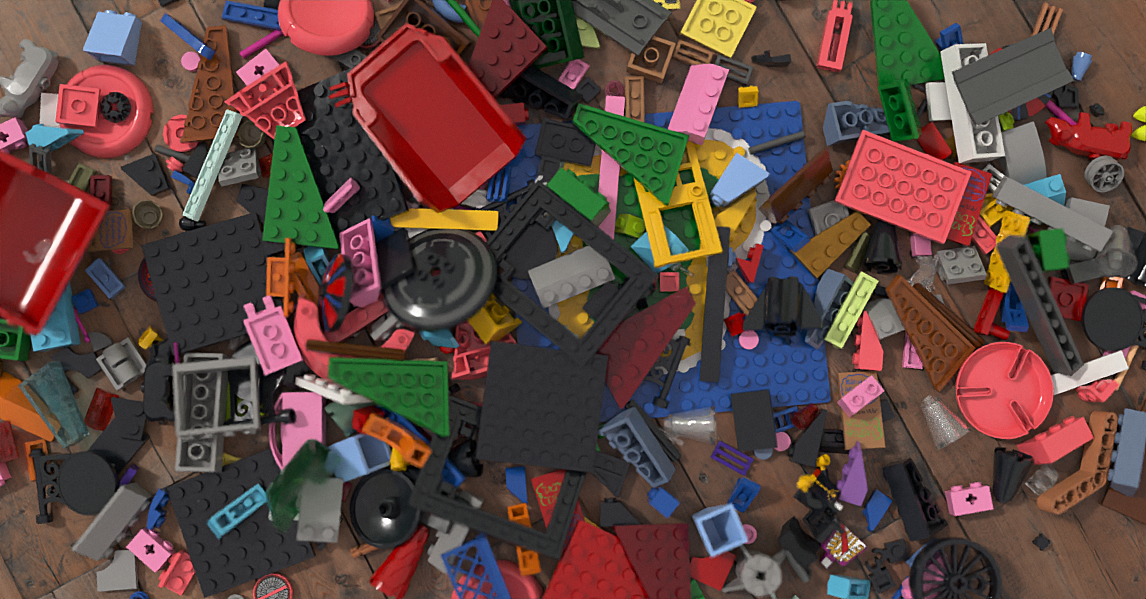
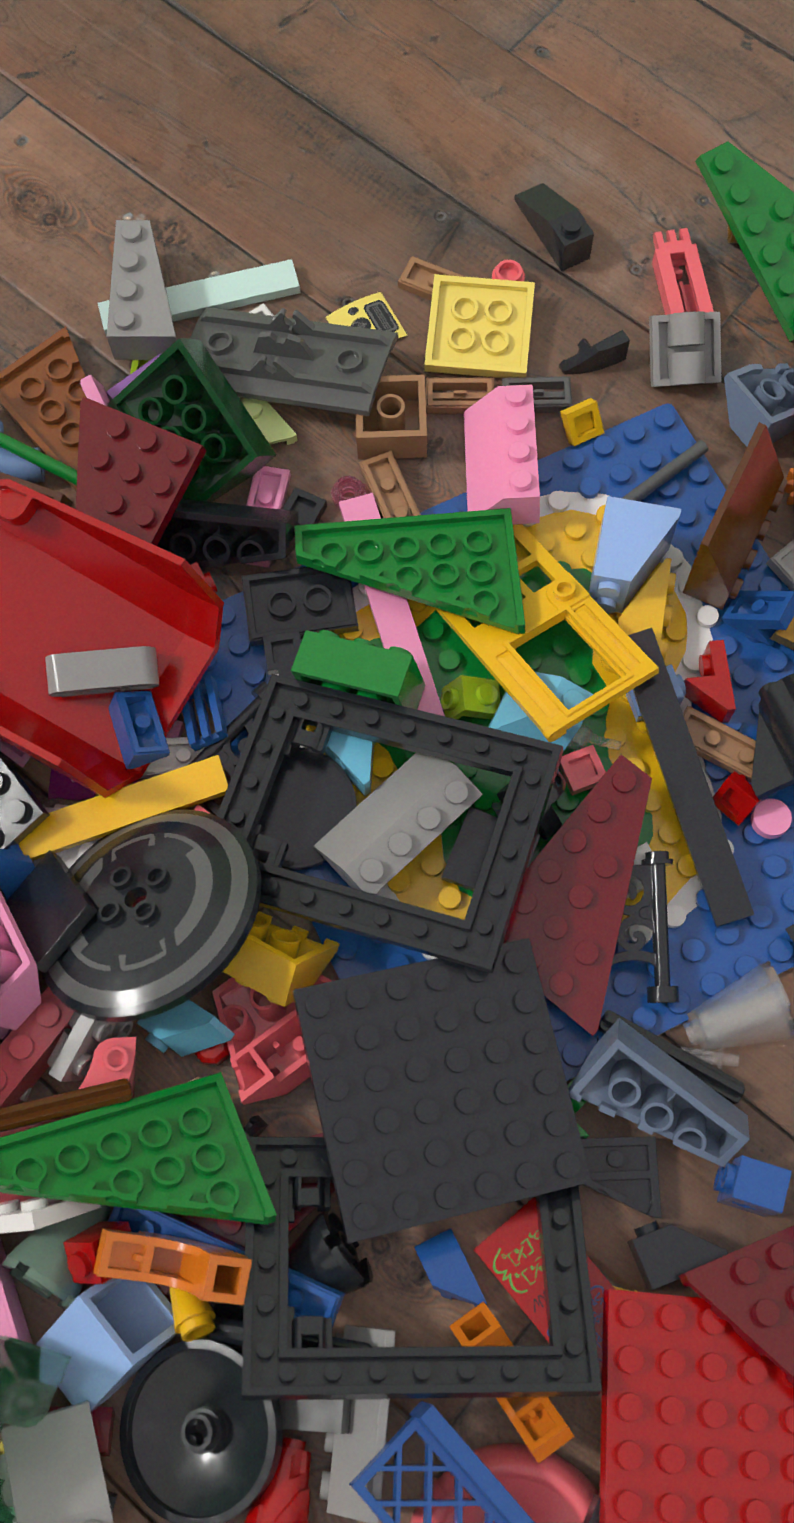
camera: 20 degrees left, 15 degrees down
(457, 148) = (102, 671): none -> light grey beam
(464, 183) = (138, 728): none -> blue slope
(818, 76) = (685, 348): none -> light grey plate

